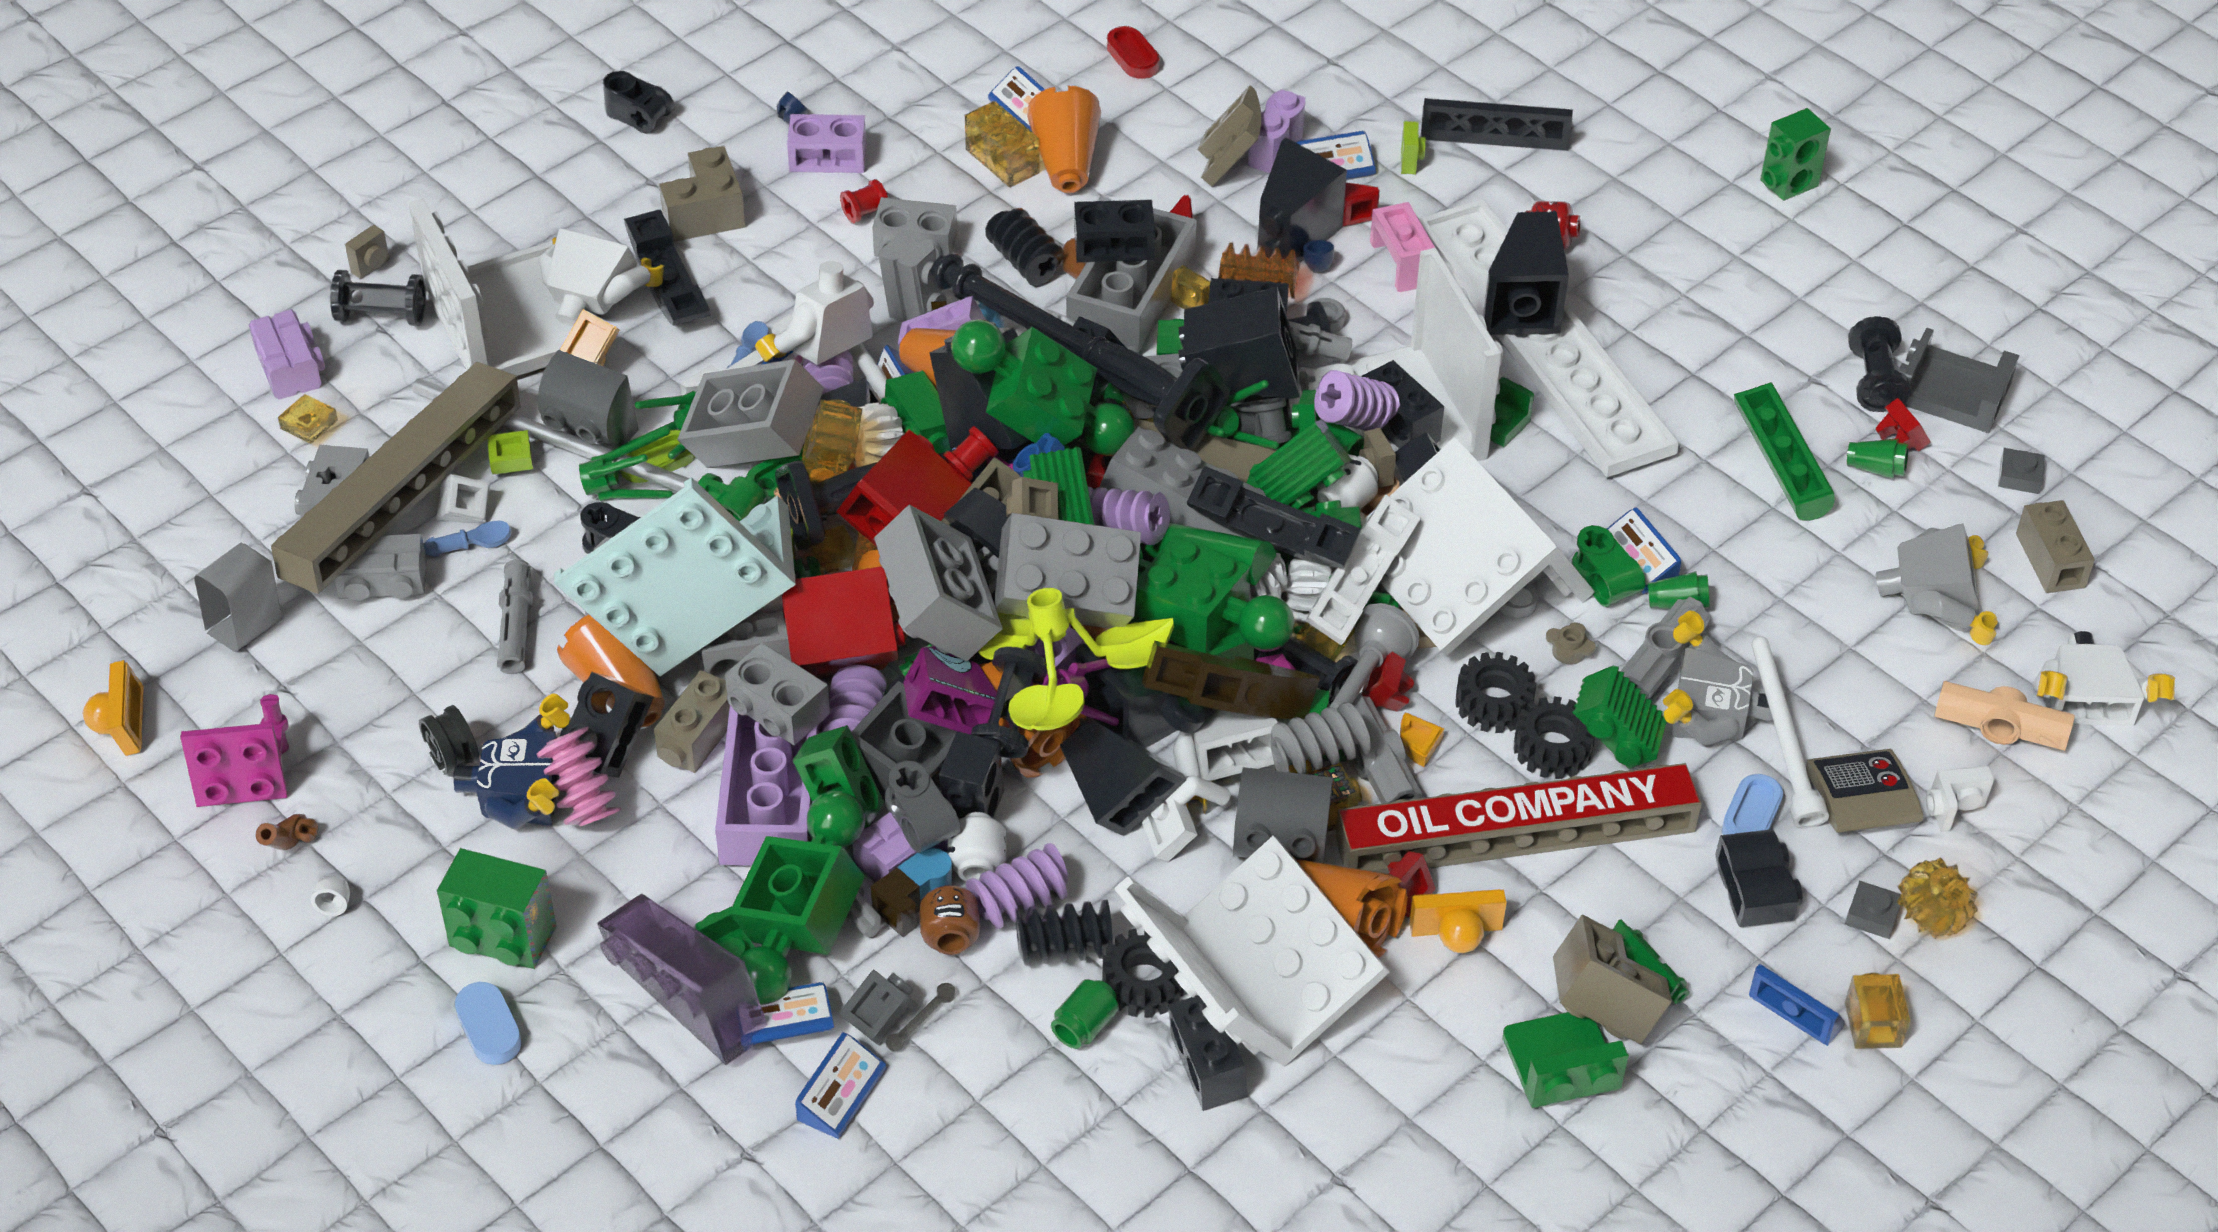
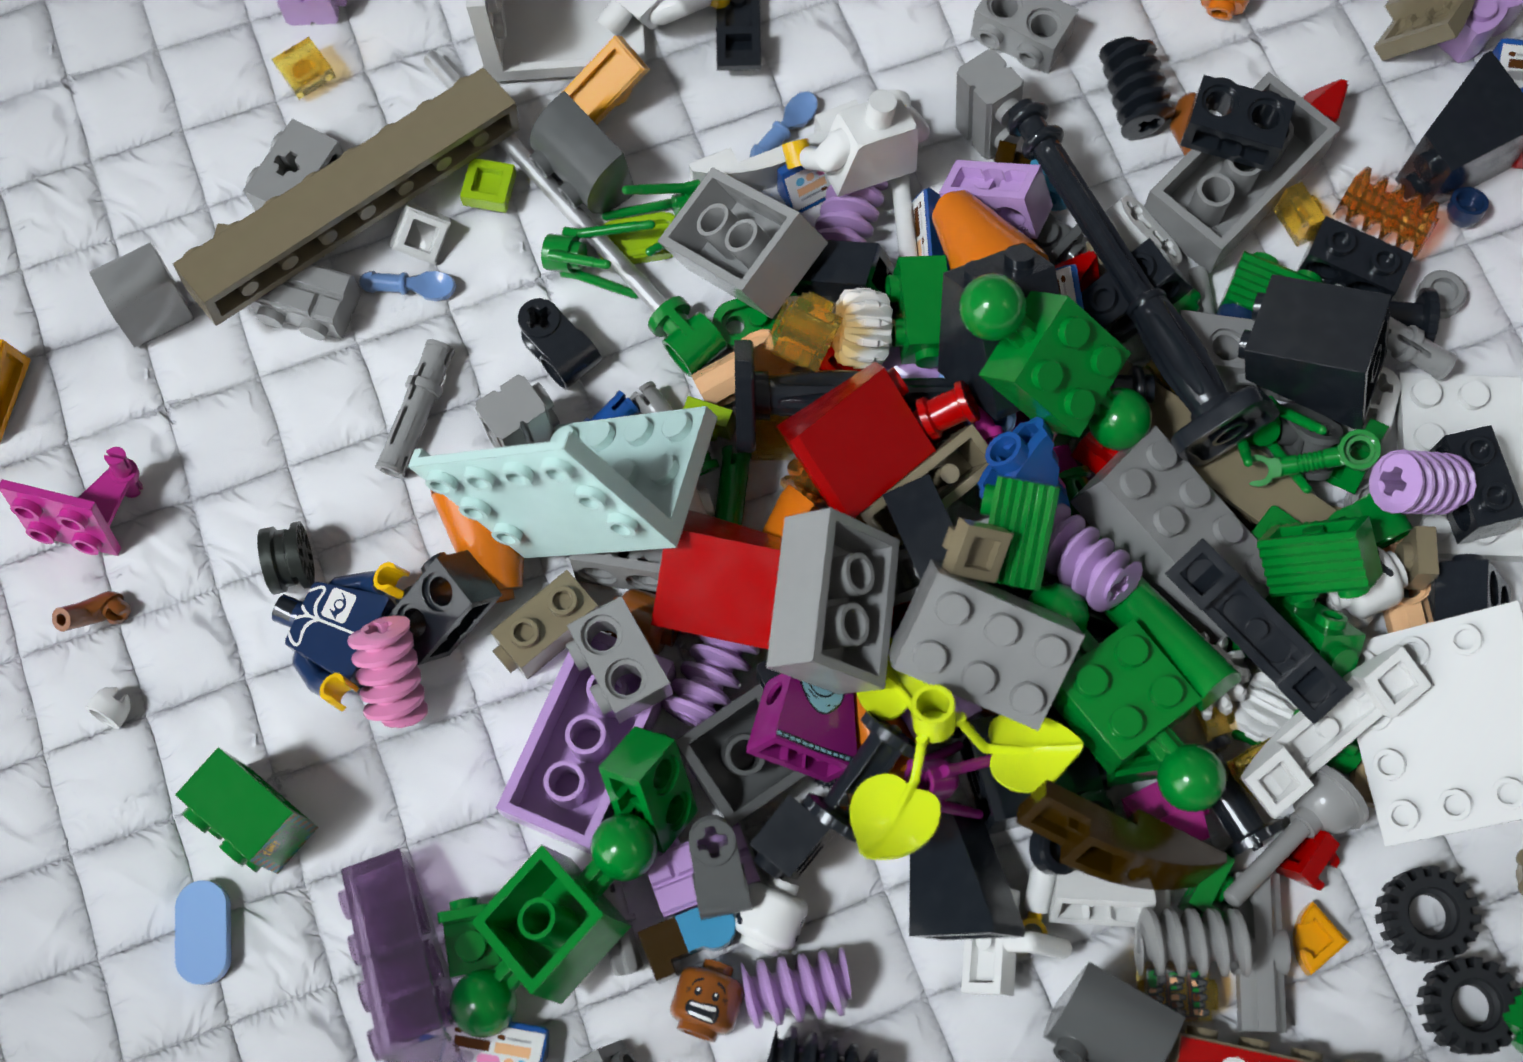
camera: 25 degrees right, 25 degrees up
(1298, 400) = (1329, 457): none -> green brick

